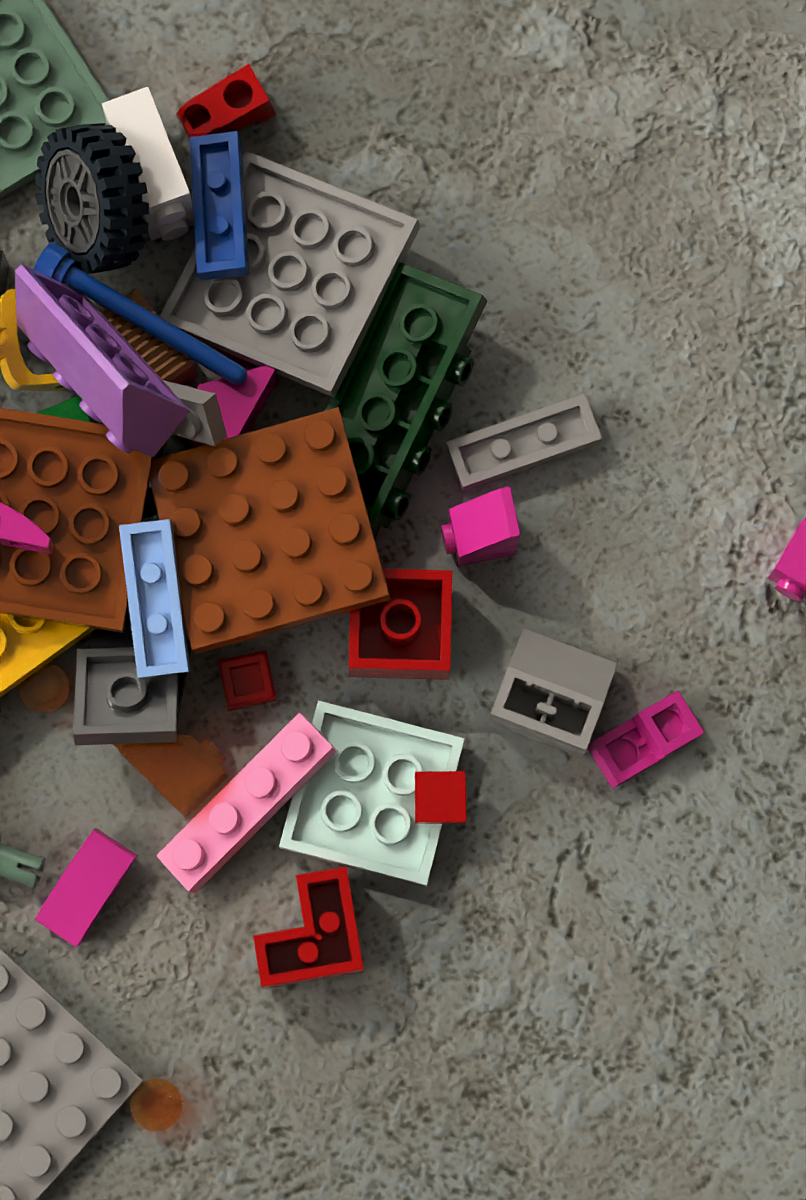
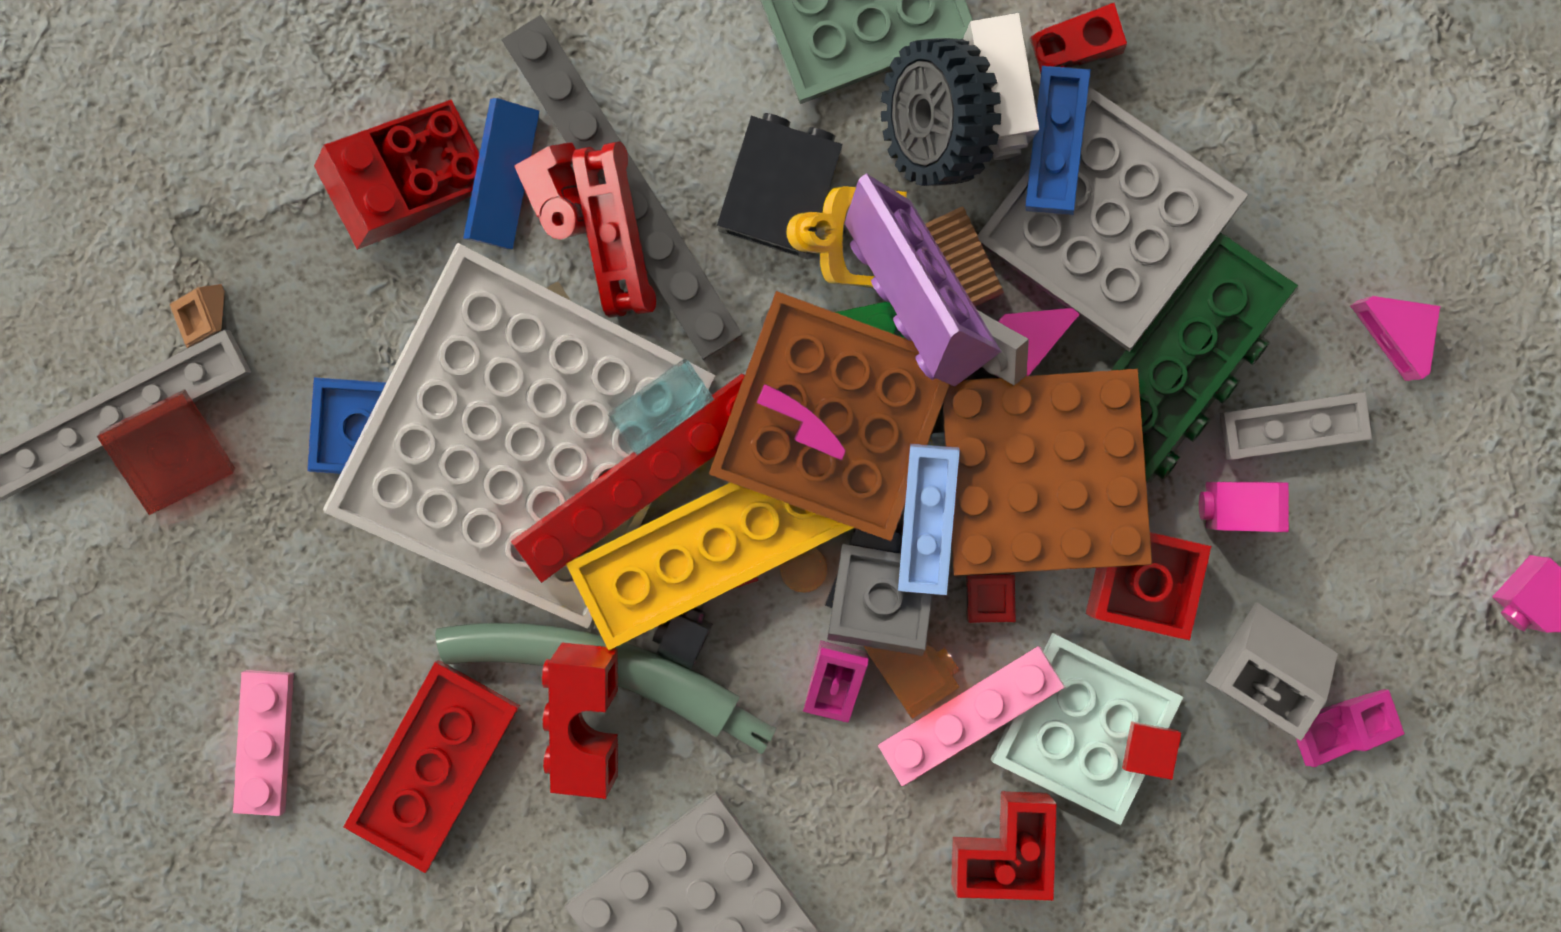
camera: 20 degrees right, 10 degrees up
(58, 265) = (896, 175): blue piece -> none
(86, 887) = (808, 760): dark pink slope -> none
(98, 794) = (835, 681): none -> dark pink slope
(607, 324) = (1402, 331): none -> dark pink slope

